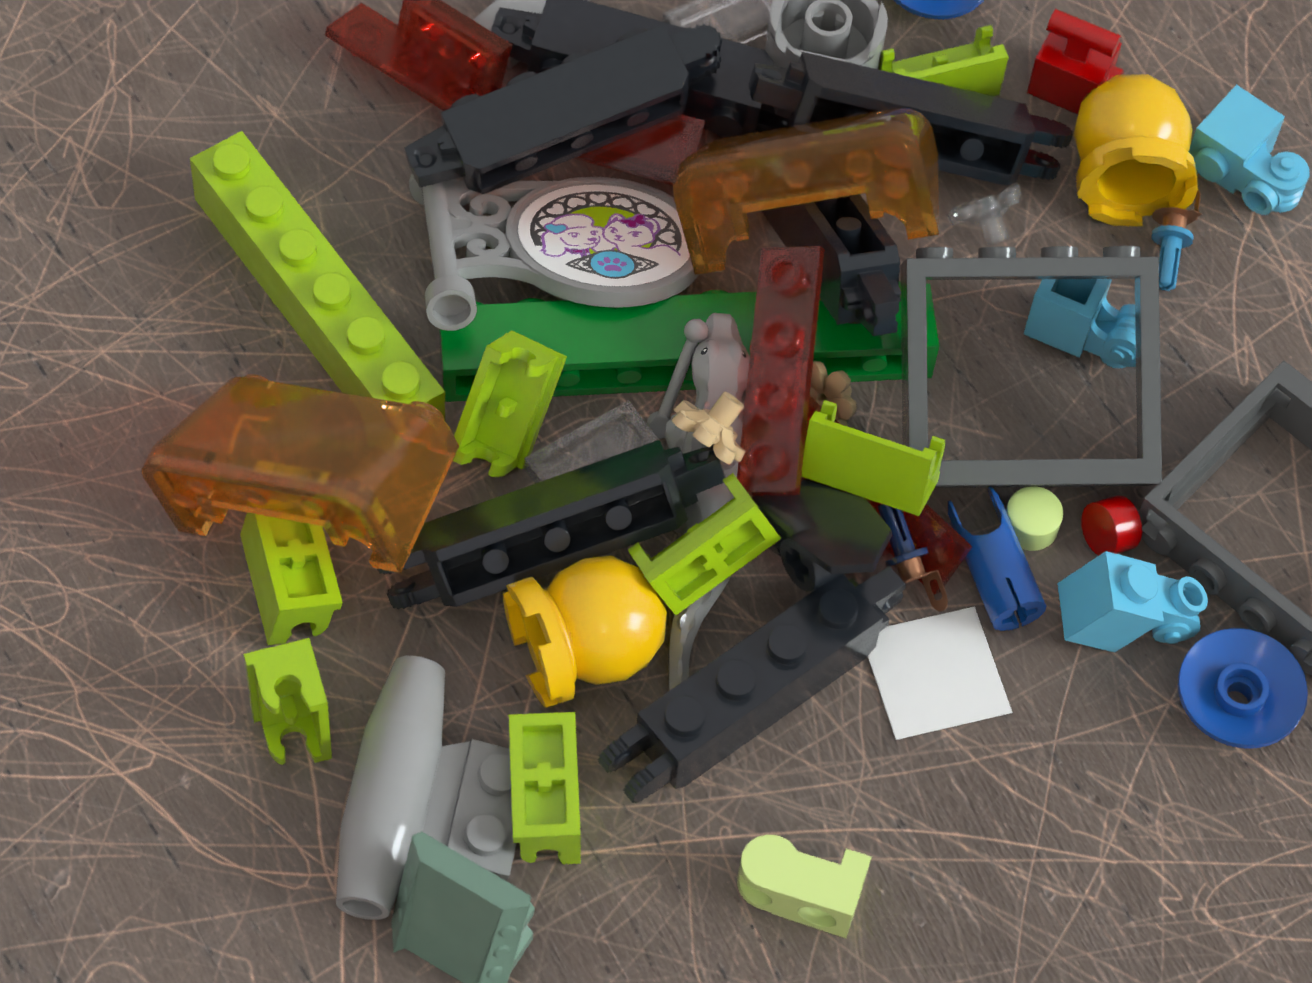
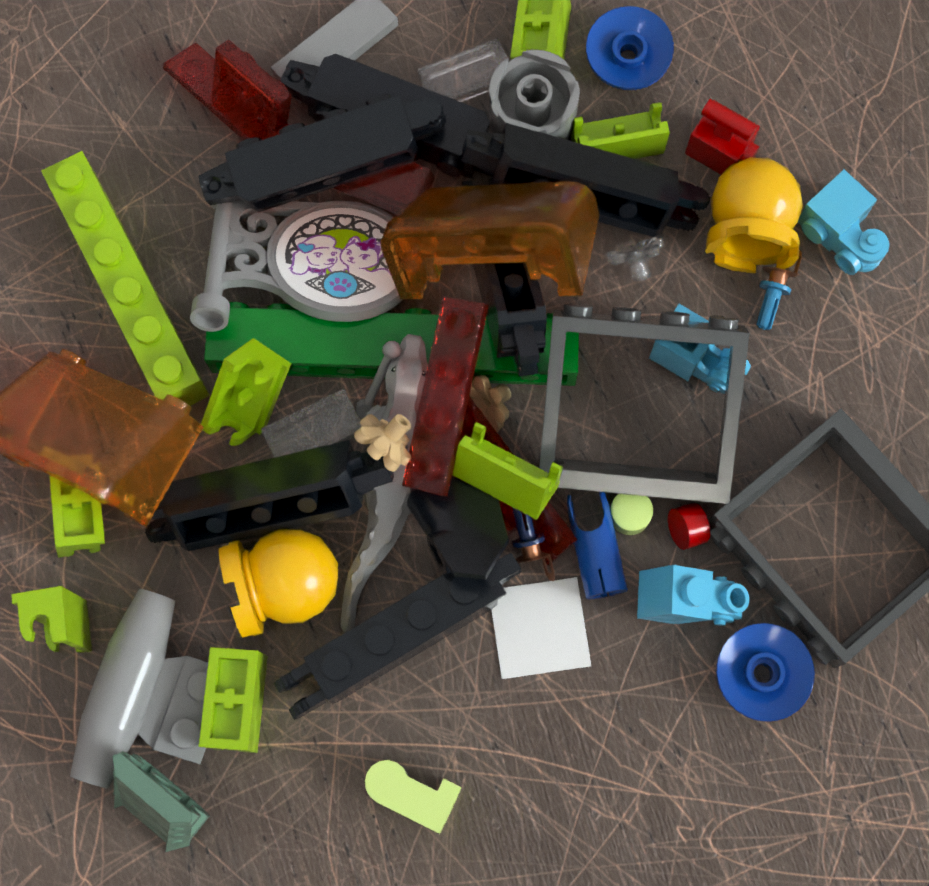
camera: 15 degrees right, 15 degrees up
(708, 550) = (370, 533): lime hinge -> none

